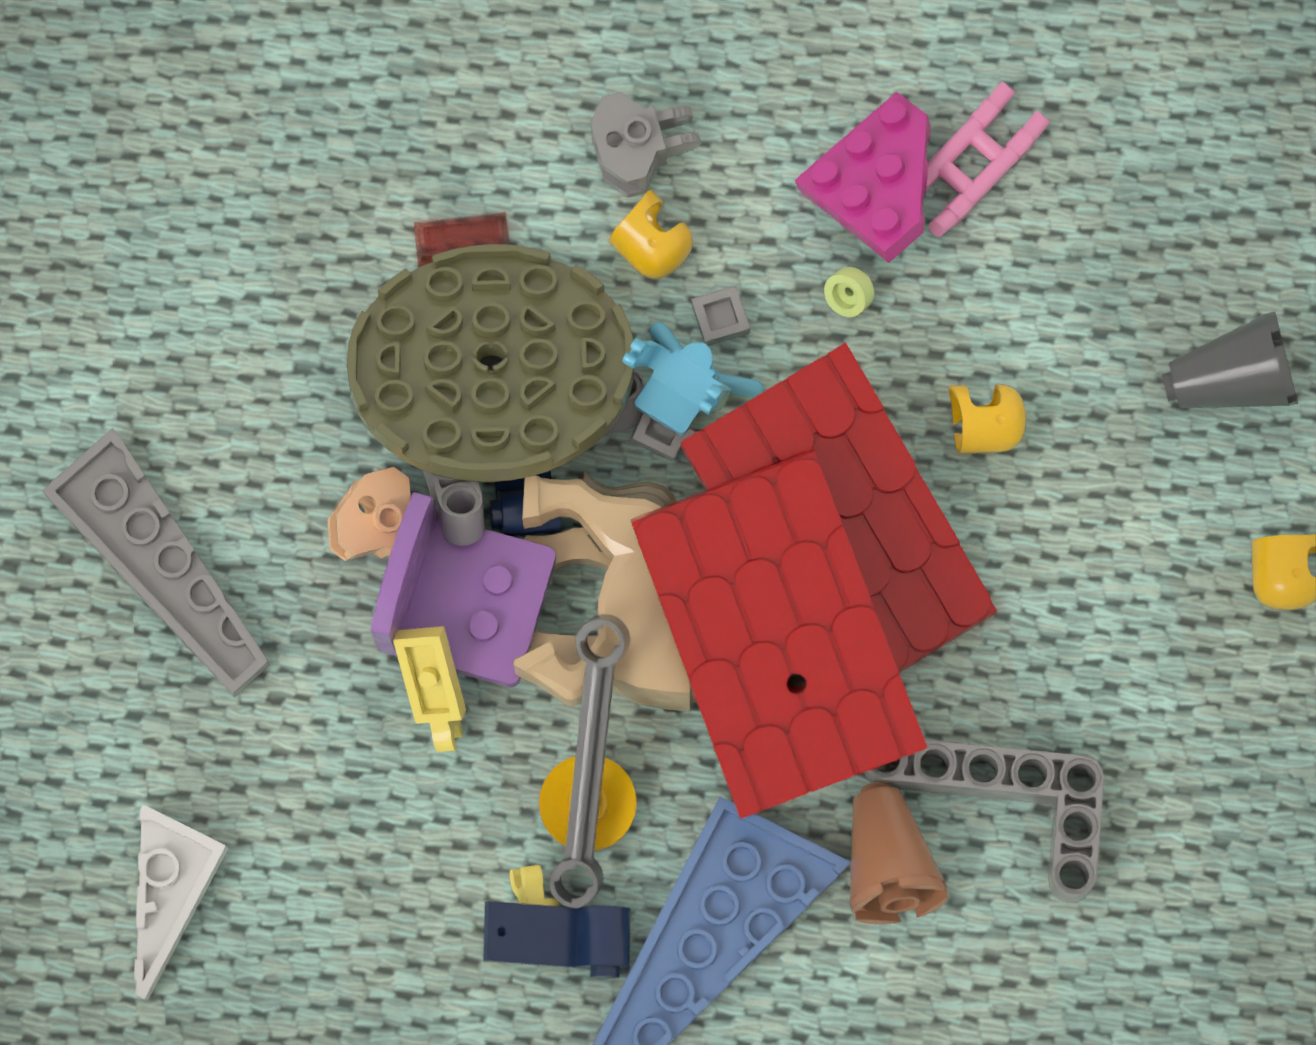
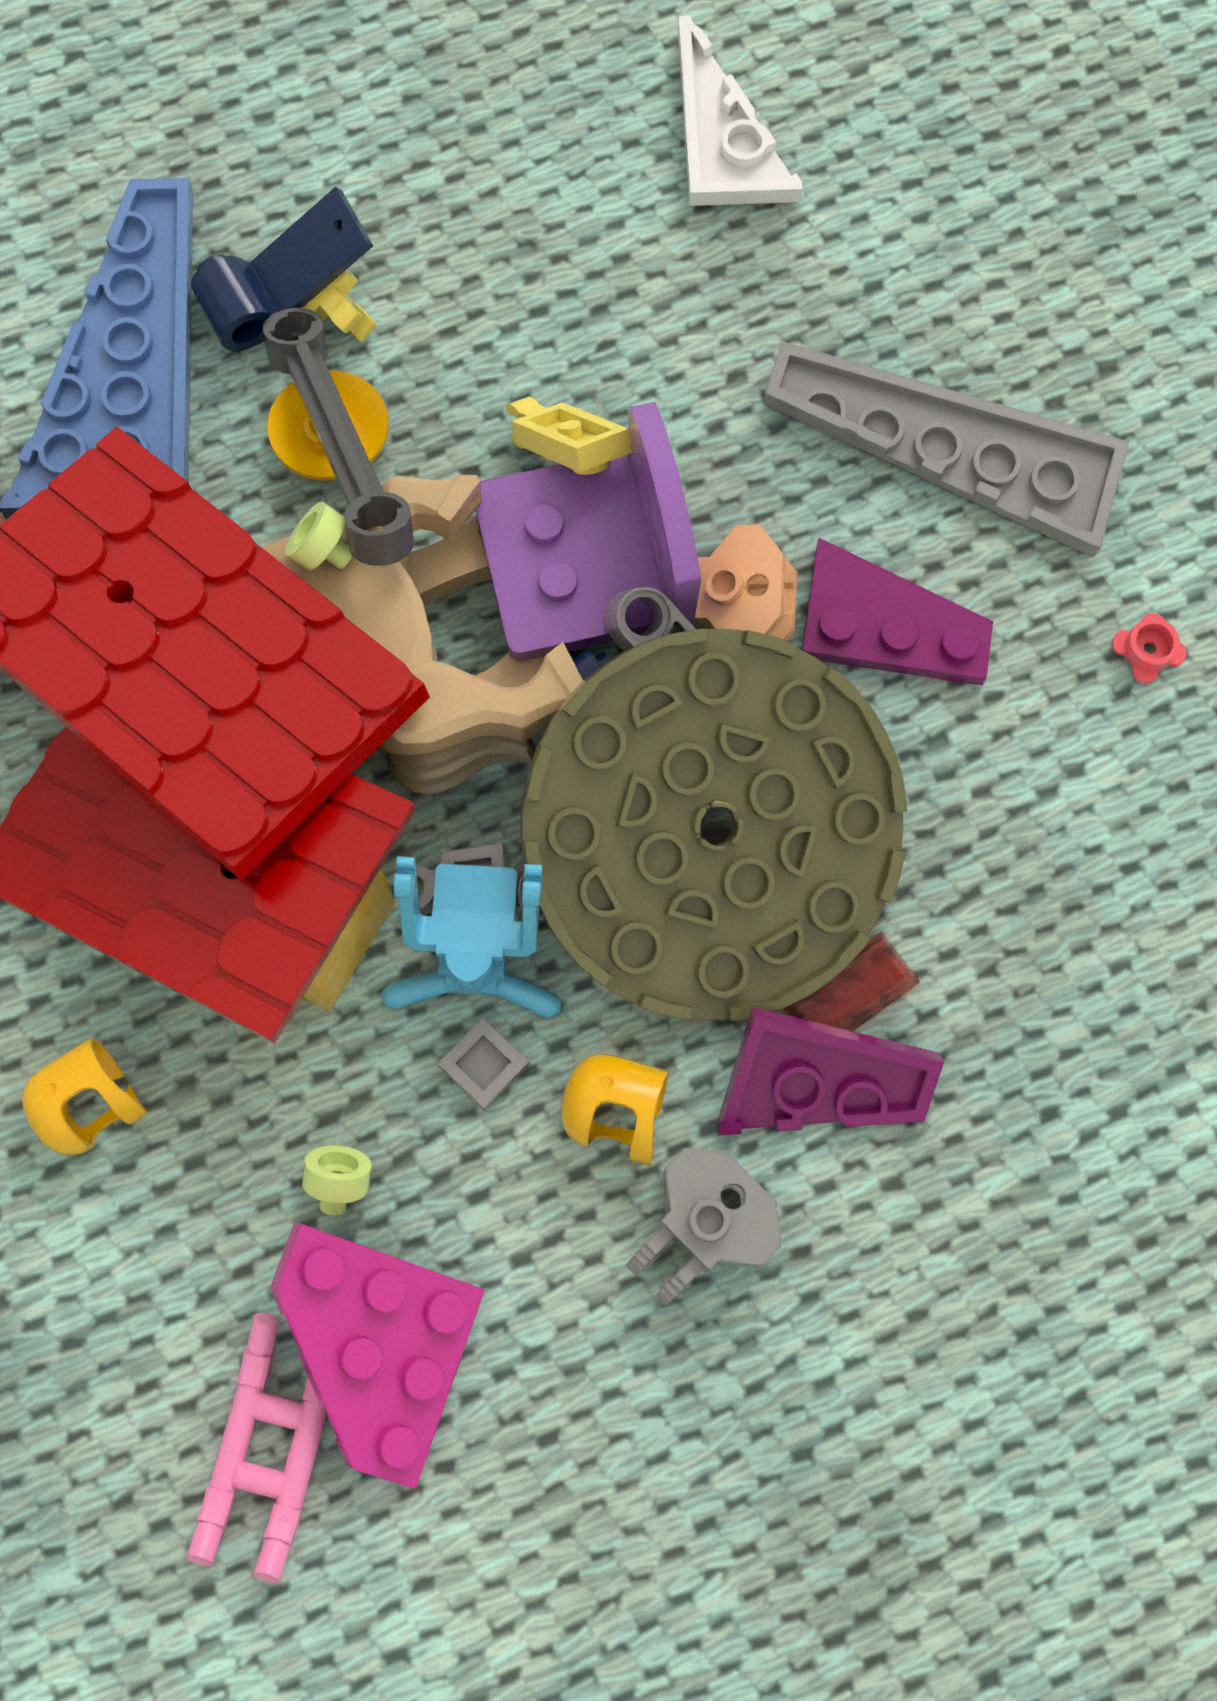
camera: 145 degrees right, 0 degrees up
(116, 339) = (1161, 635): none -> coral plate
(285, 461) = (890, 624): none -> magenta wing
(520, 199) = (818, 1073): none -> magenta wing
(647, 662) = (319, 539): none -> yellowish green tile

